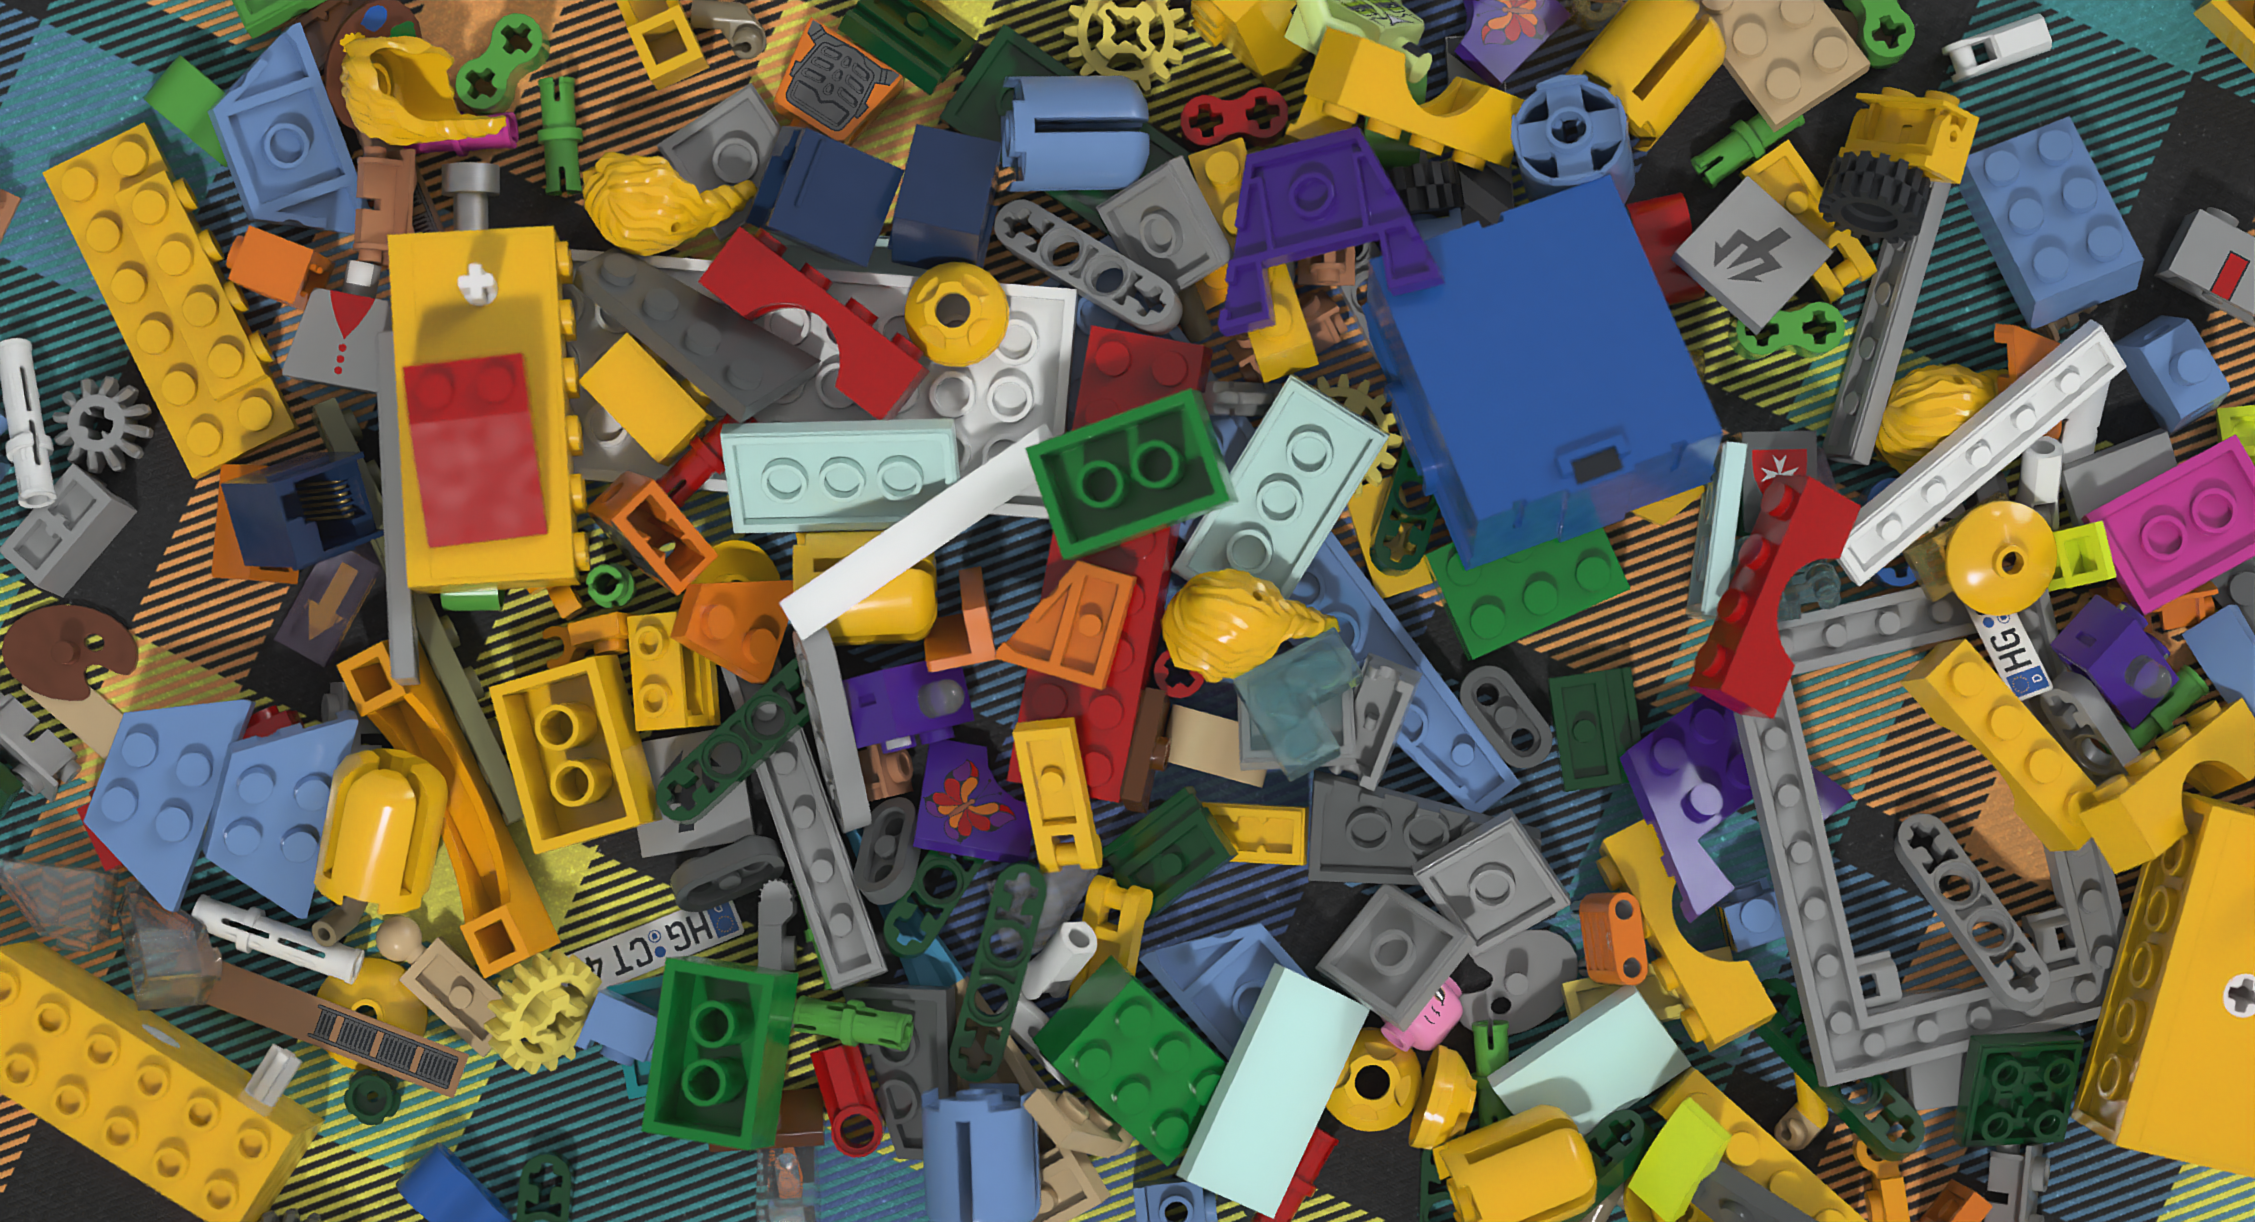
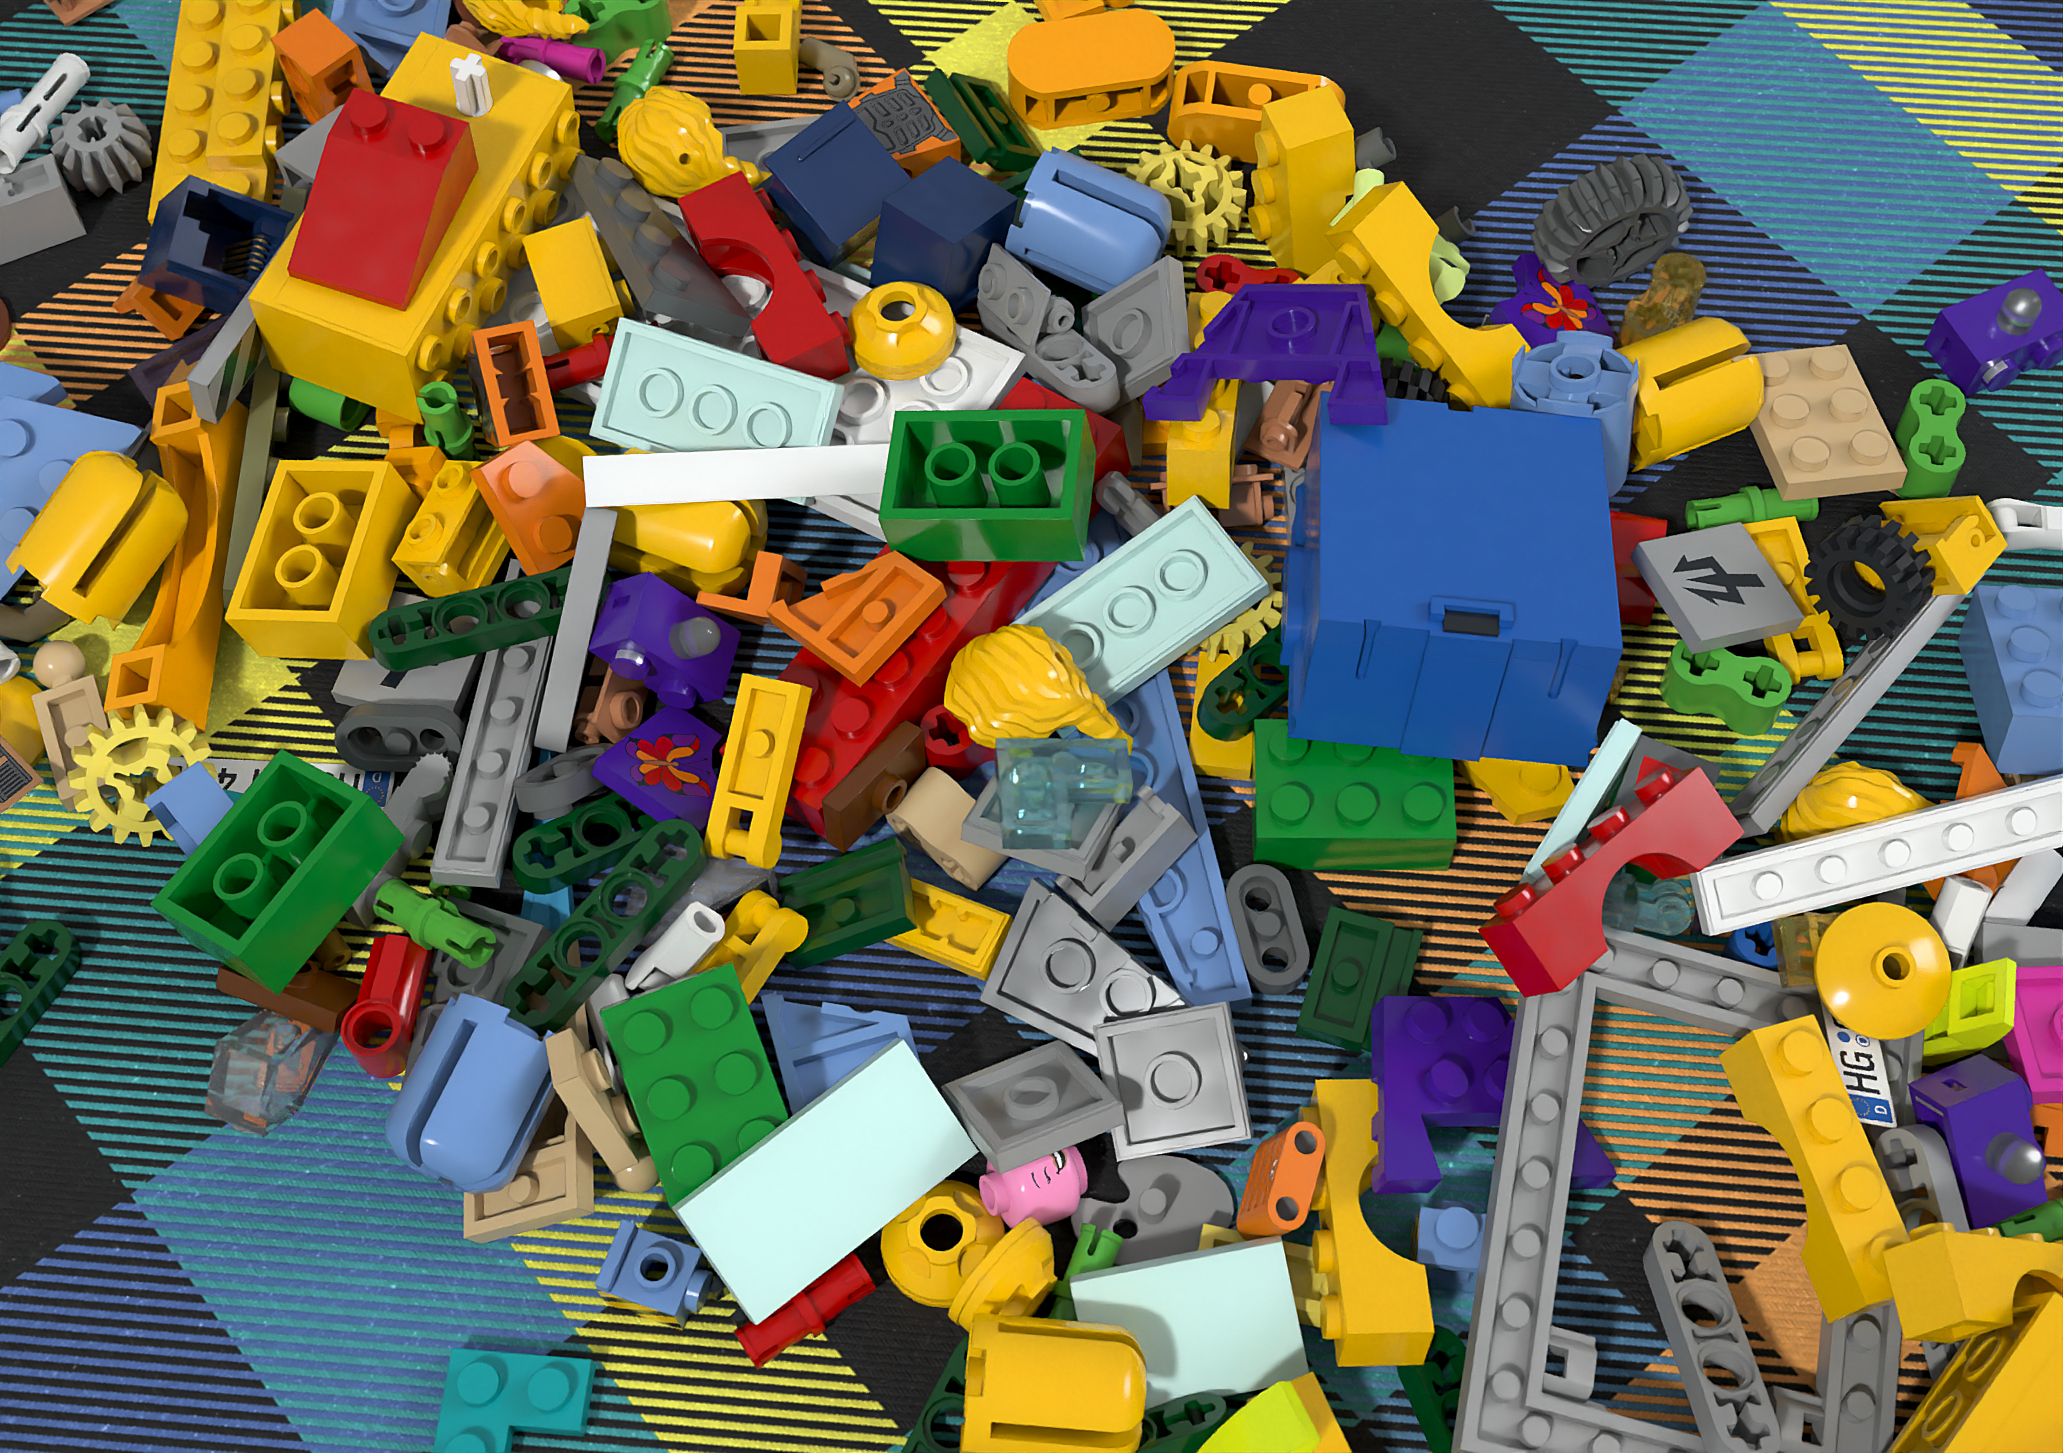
camera: 30 degrees right, 25 degrees down
(1029, 223) = (1020, 298): none -> light grey hinge

